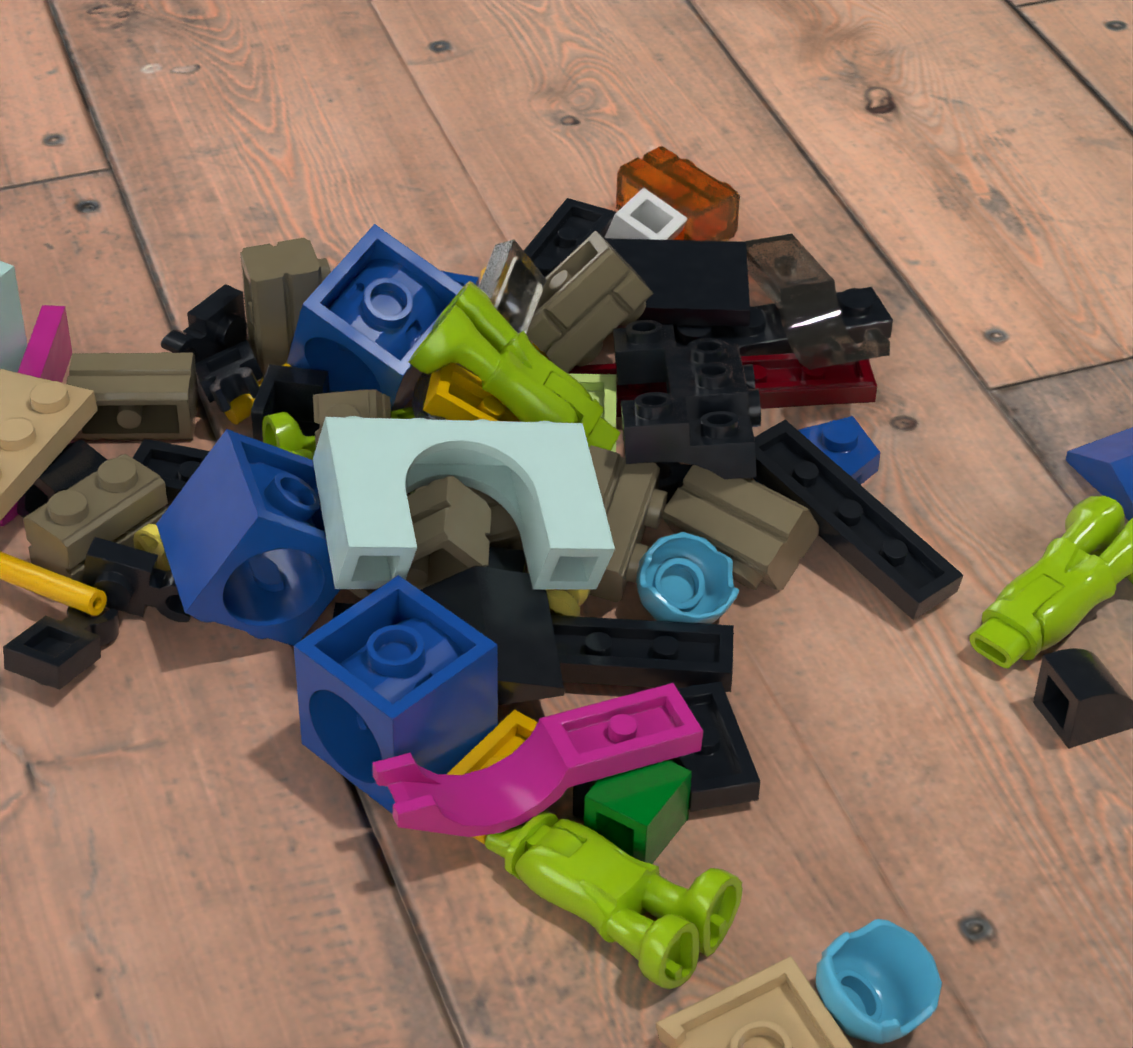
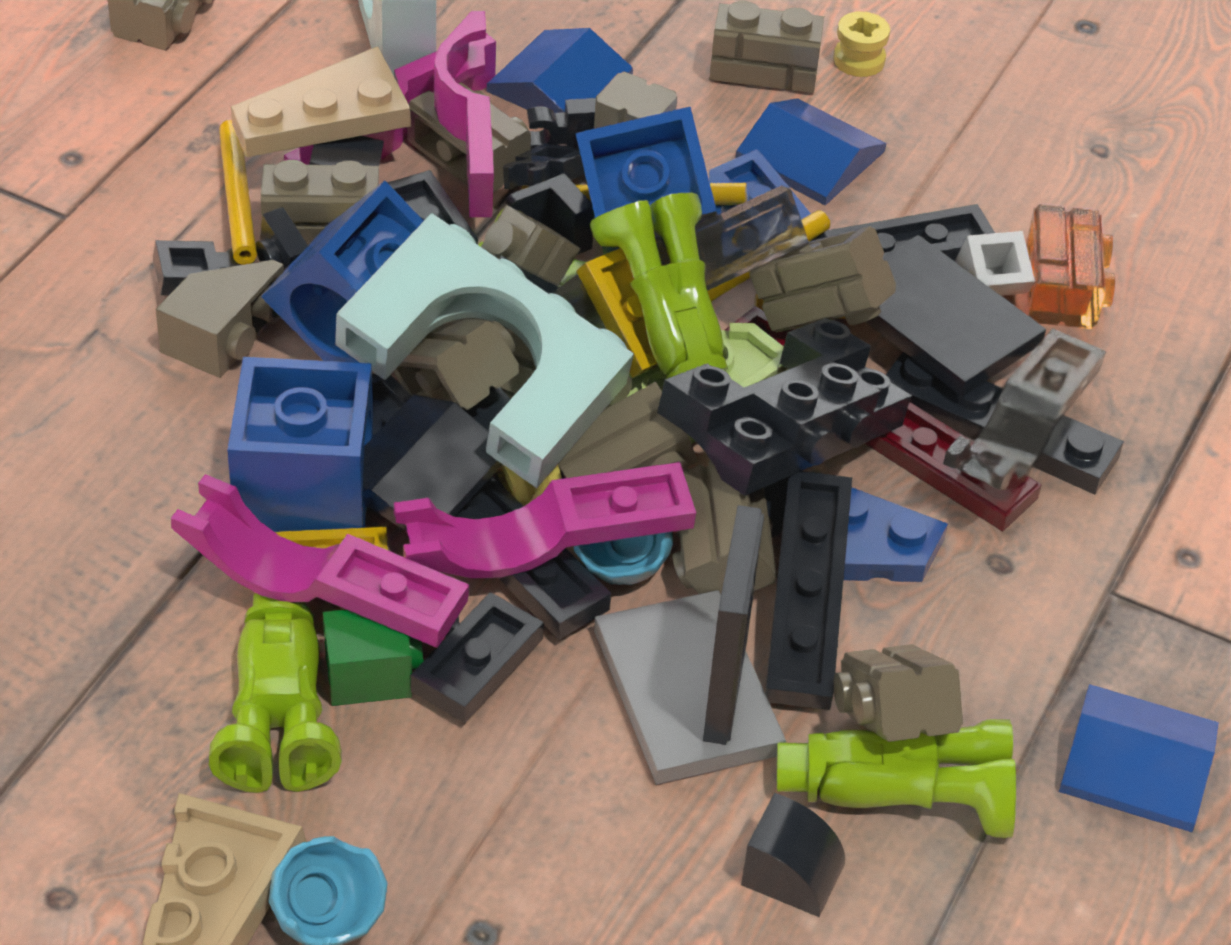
camera: 45 degrees right, 5 degrees up
(121, 307) = (557, 69): none -> blue slope
(139, 668) = (217, 315): none -> dark tan slope
(159, 366) = (465, 112): none -> dark pink piece
(264, 186) = (766, 46): none -> dark tan brick
(320, 145) = (861, 44): none -> light yellow wheel
(412, 225) = (811, 148): none -> blue slope
(648, 599) = (563, 516): none -> dark pink piece
(855, 650) = (663, 677): none -> light grey tile
(900, 555) = (733, 624): none -> black tile
(1016, 529) = (899, 692): none -> dark tan brick

